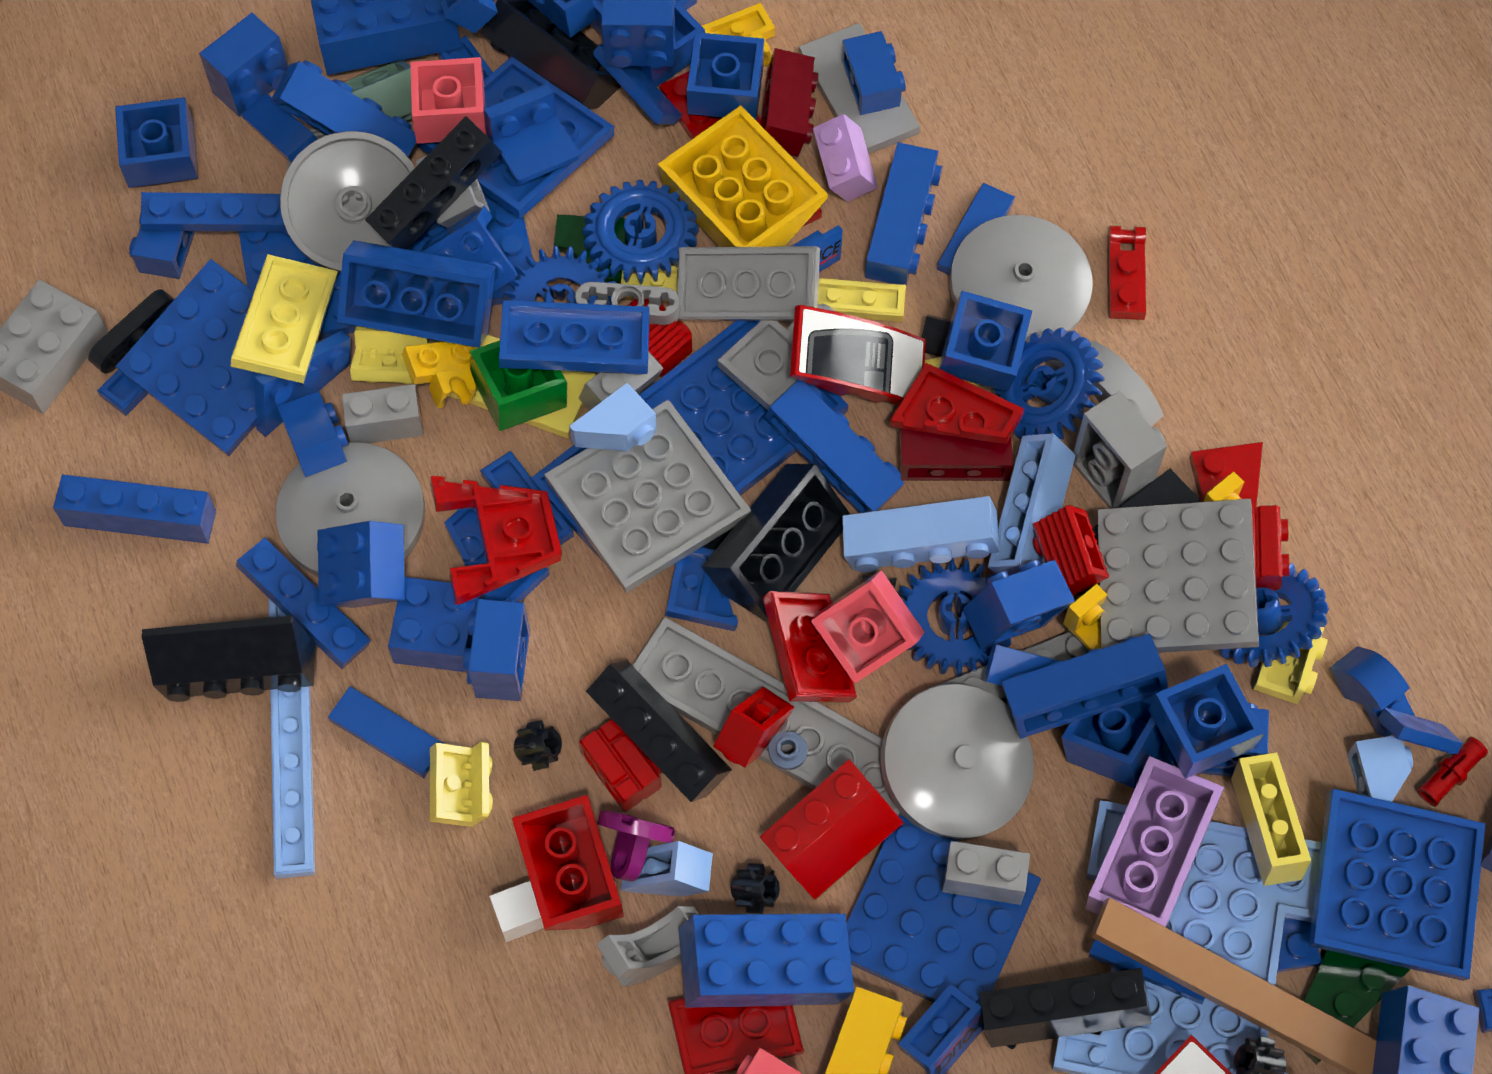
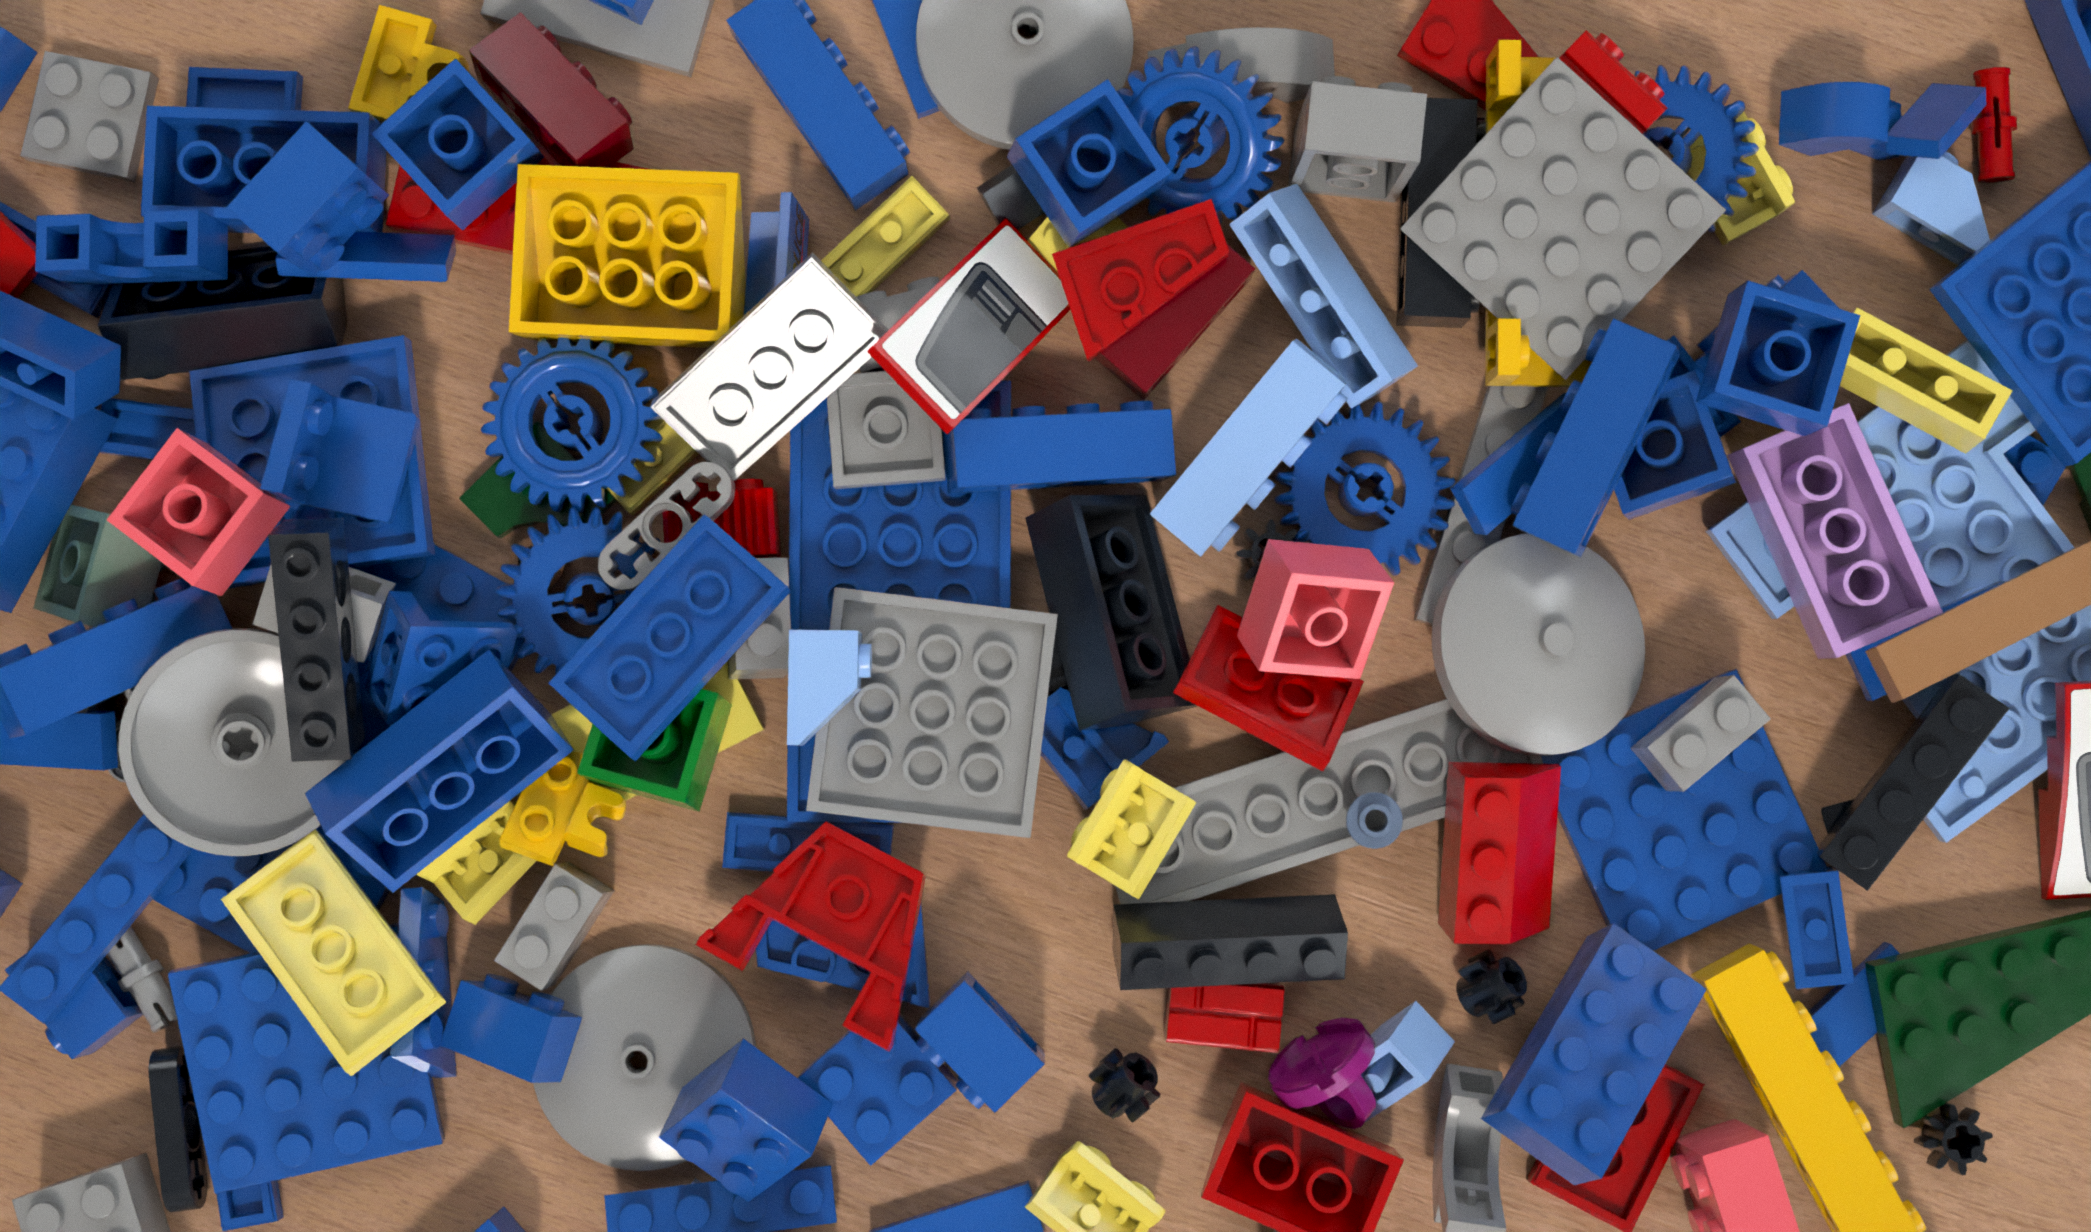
camera: 50 degrees left, 20 degrees up
(195, 258) = (143, 980): none -> light grey pin
(673, 630) = (1130, 828): none -> light yellow bracket
(752, 726) = (1317, 835): red slope -> none
(845, 158) = (689, 98): lavender brick -> none
(1017, 602) = (1440, 423): blue brick -> none
(1071, 542) = (1428, 309): red brick -> none

